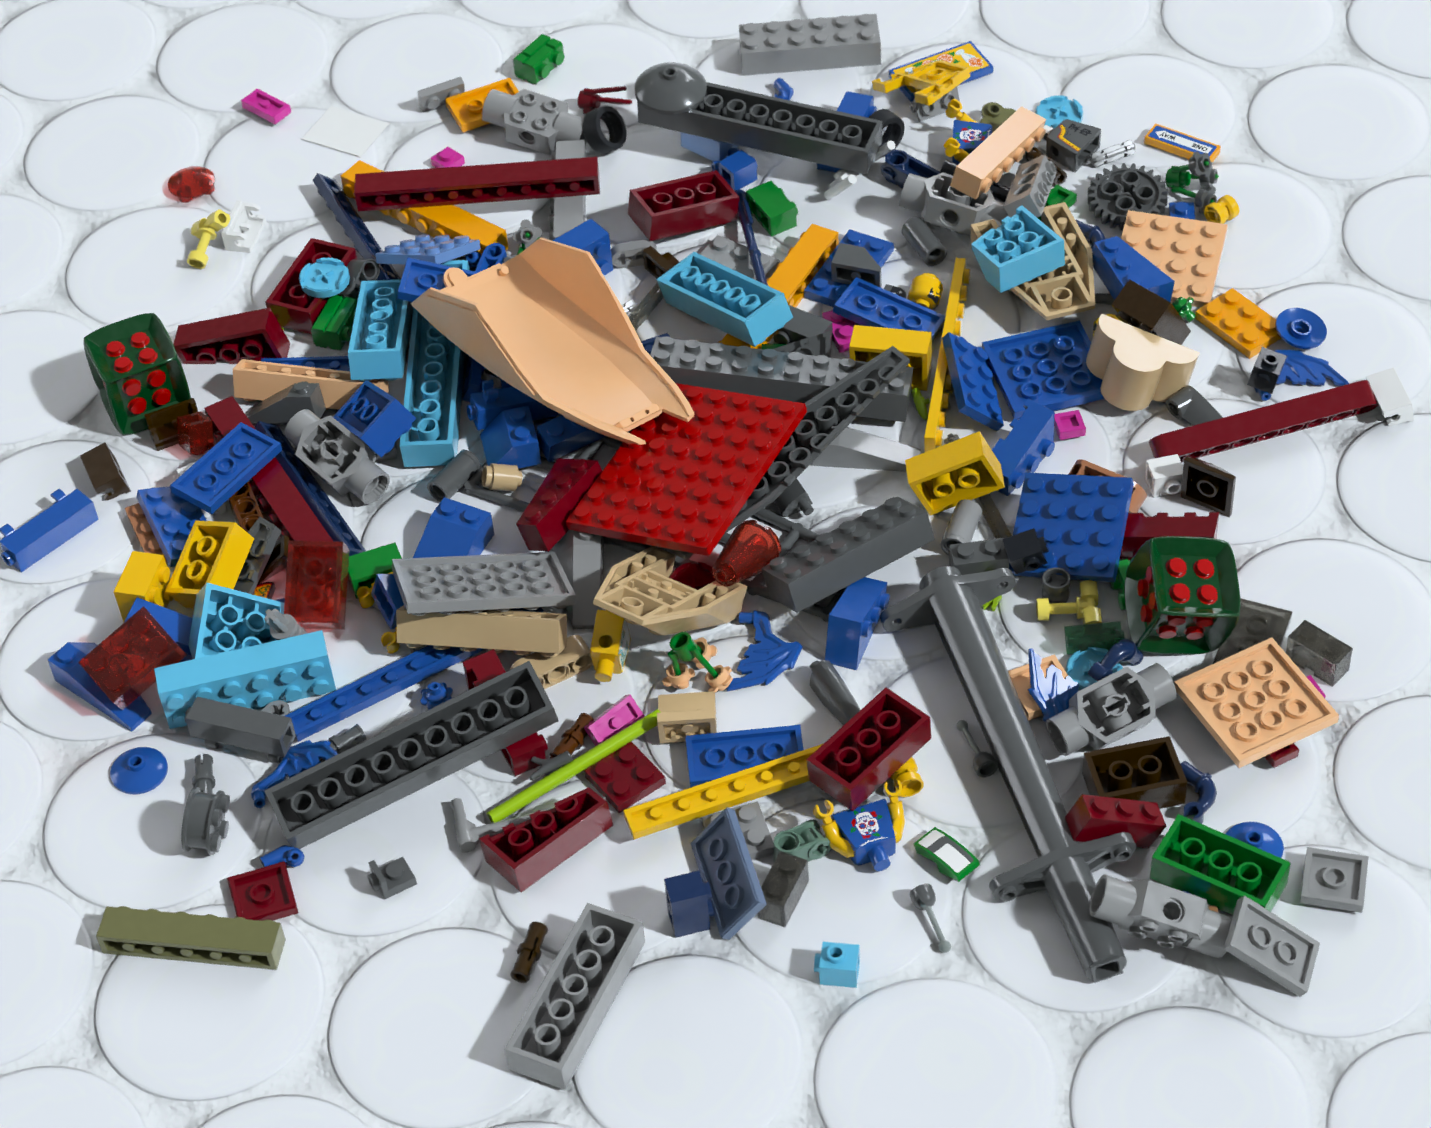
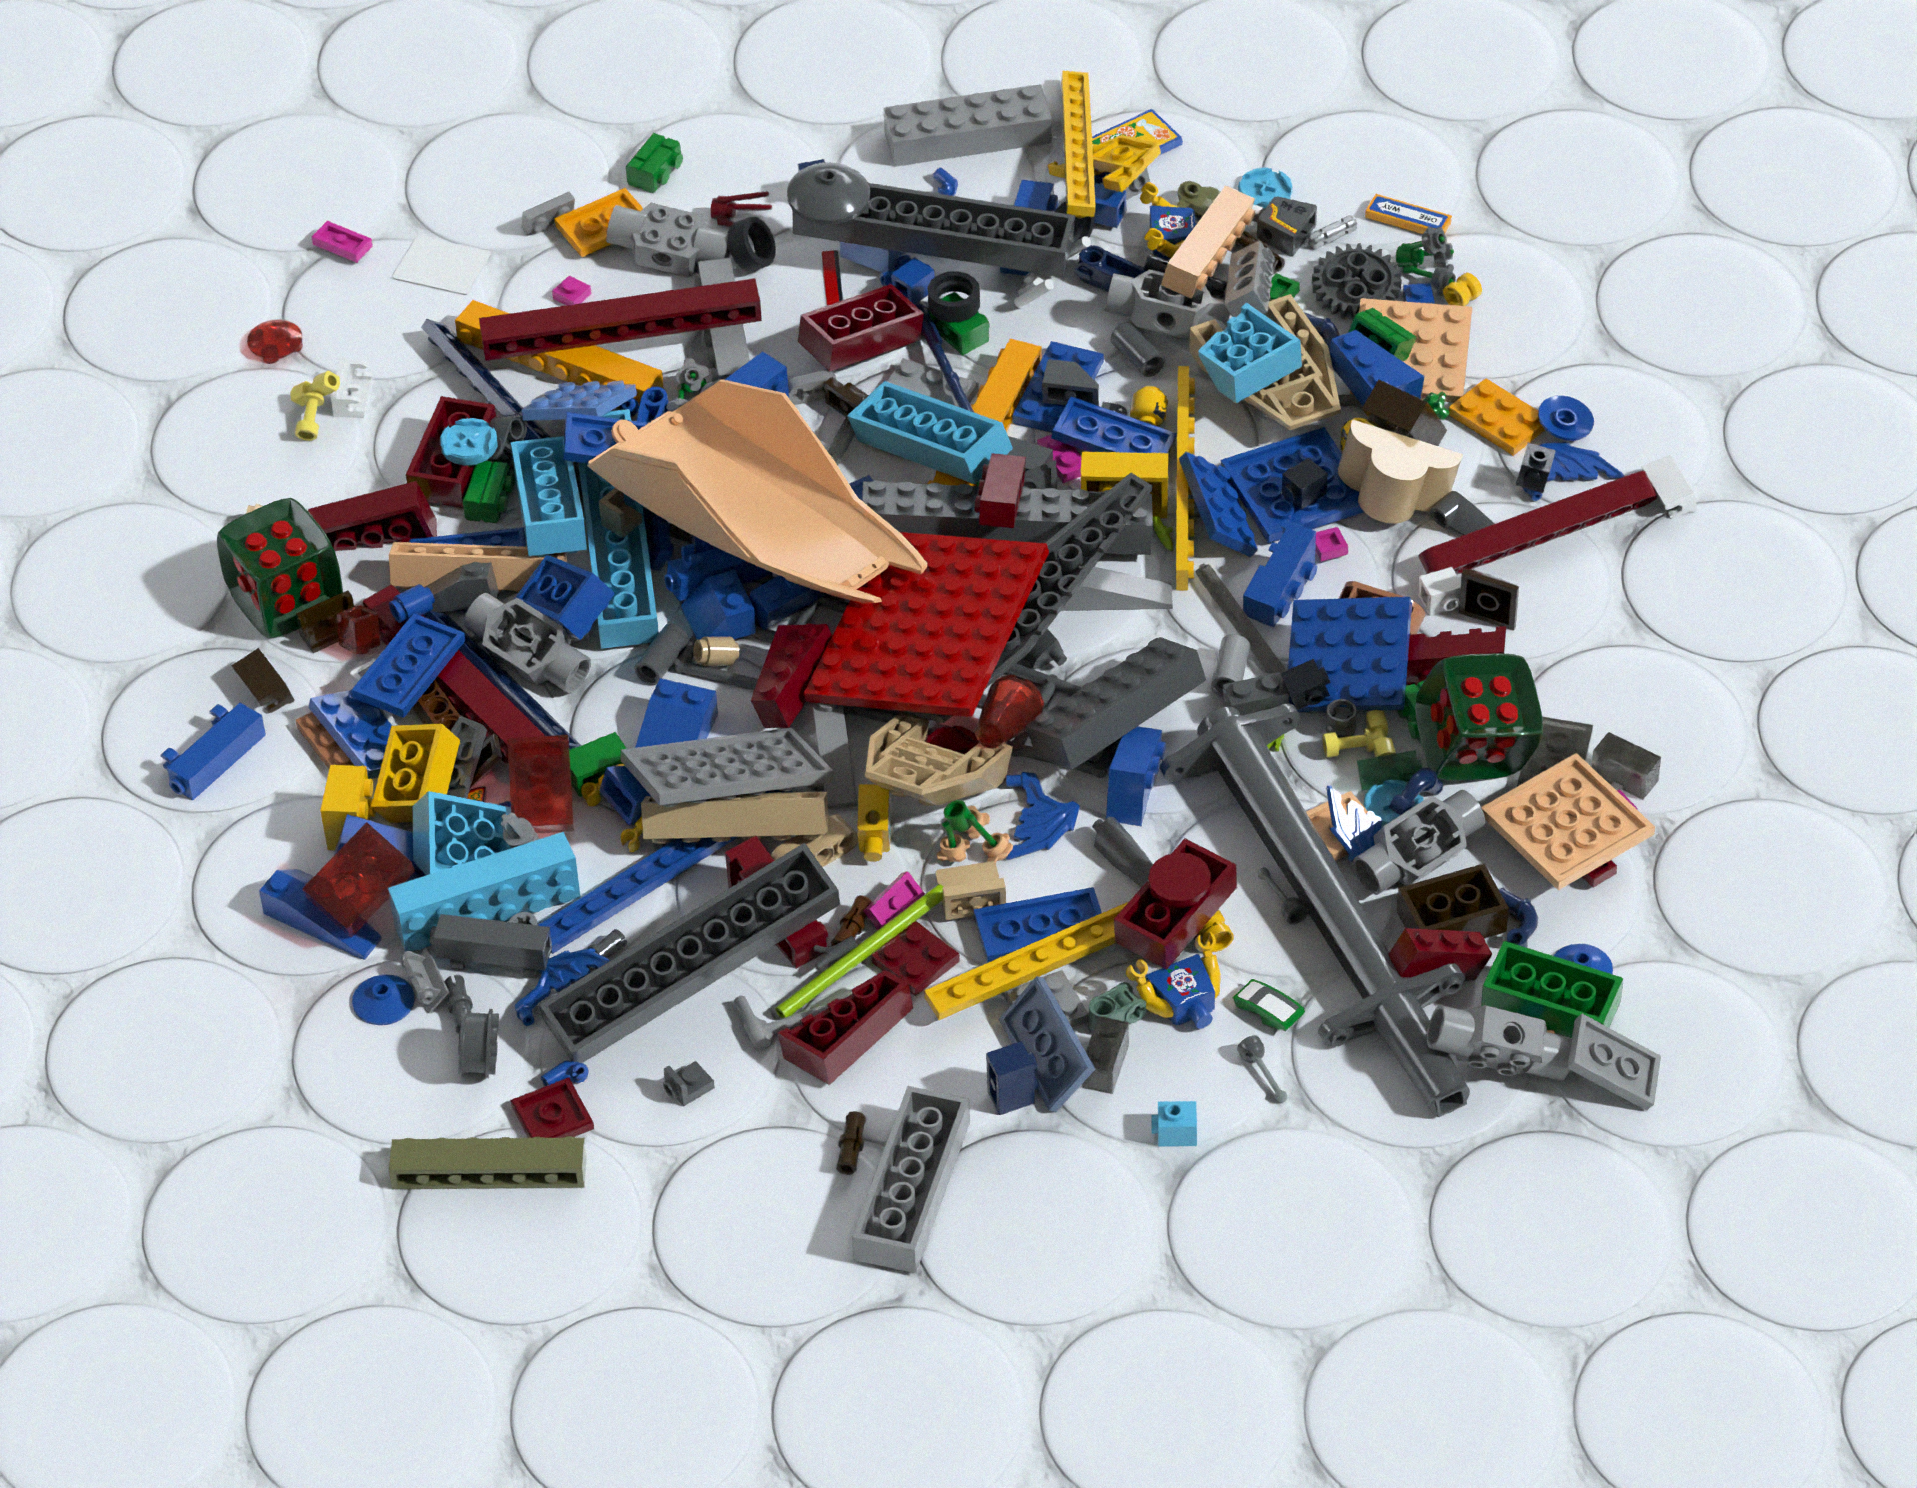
camera: 10 degrees left, 0 degrees up
(177, 754) = (425, 978): none -> light grey hinge
(244, 411) = (414, 600): none -> blue brick
(435, 349) = (617, 515): none -> dark tan panel
(435, 694) = (694, 892): blue plant -> none
(672, 160) = (832, 276): none -> red sticker
(768, 196) = (953, 282): none -> black tyre
(774, 353) = (1000, 490): none -> brick
(873, 727) = (1179, 879): none -> dark red tile
(898, 65) = (1078, 144): none -> yellow plate
(917, 117) = (1109, 206): none -> blue brick
(954, 473) = (1217, 606): yellow brick -> none
(1052, 368) = (1304, 483): none -> black brick
(1143, 241) = (1384, 333): none -> green brick
(1334, 879) = (1668, 992): light grey plate -> none

